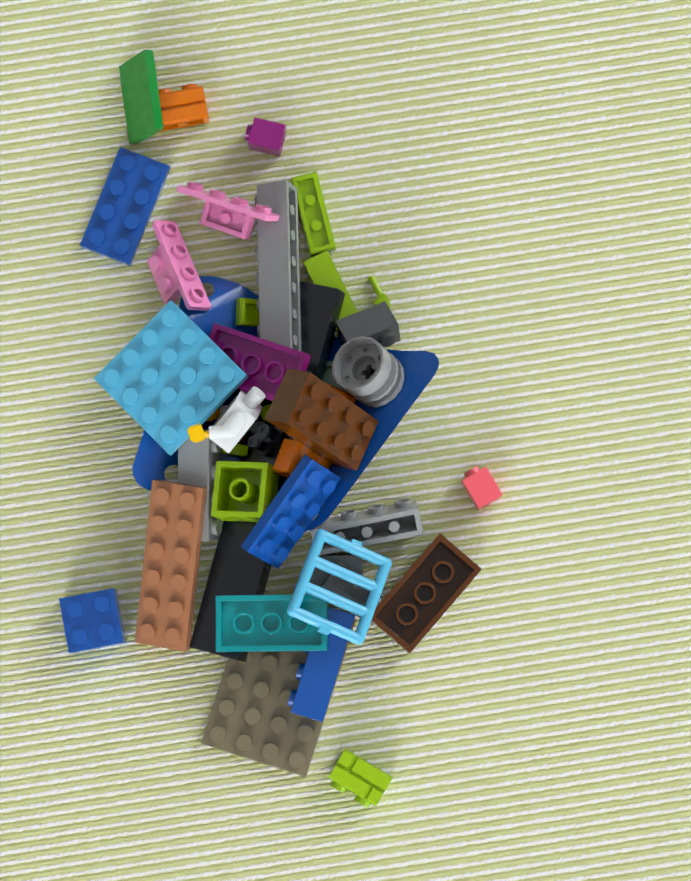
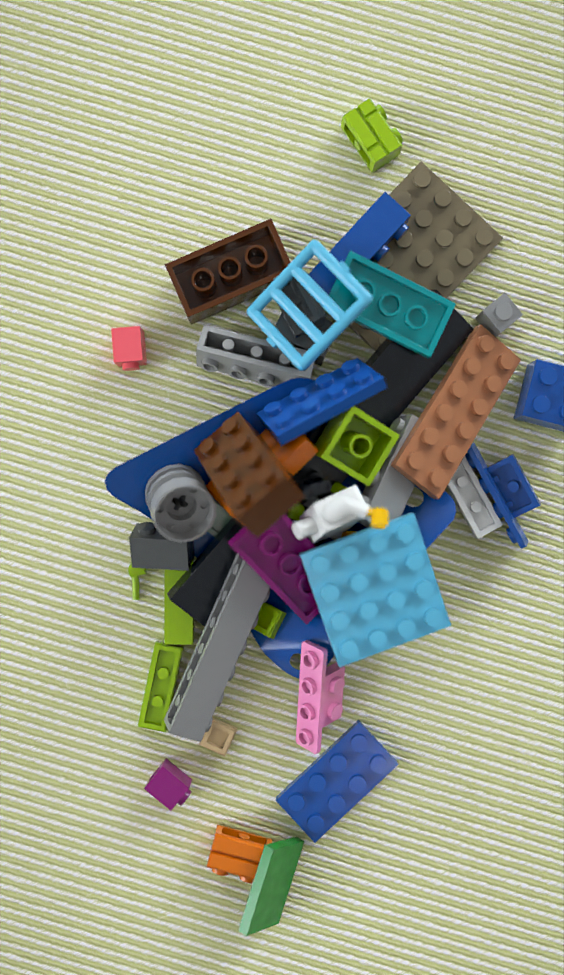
camera: 155 degrees left, 5 degrees up
(94, 521) = (508, 488): none -> blue bracket
(120, 498) = (473, 501): none -> white plate
(172, 669) = (499, 315): none -> light grey brick
(227, 214) = (243, 725): bright pink bracket -> none
(244, 190) = (218, 737): none -> tan tile

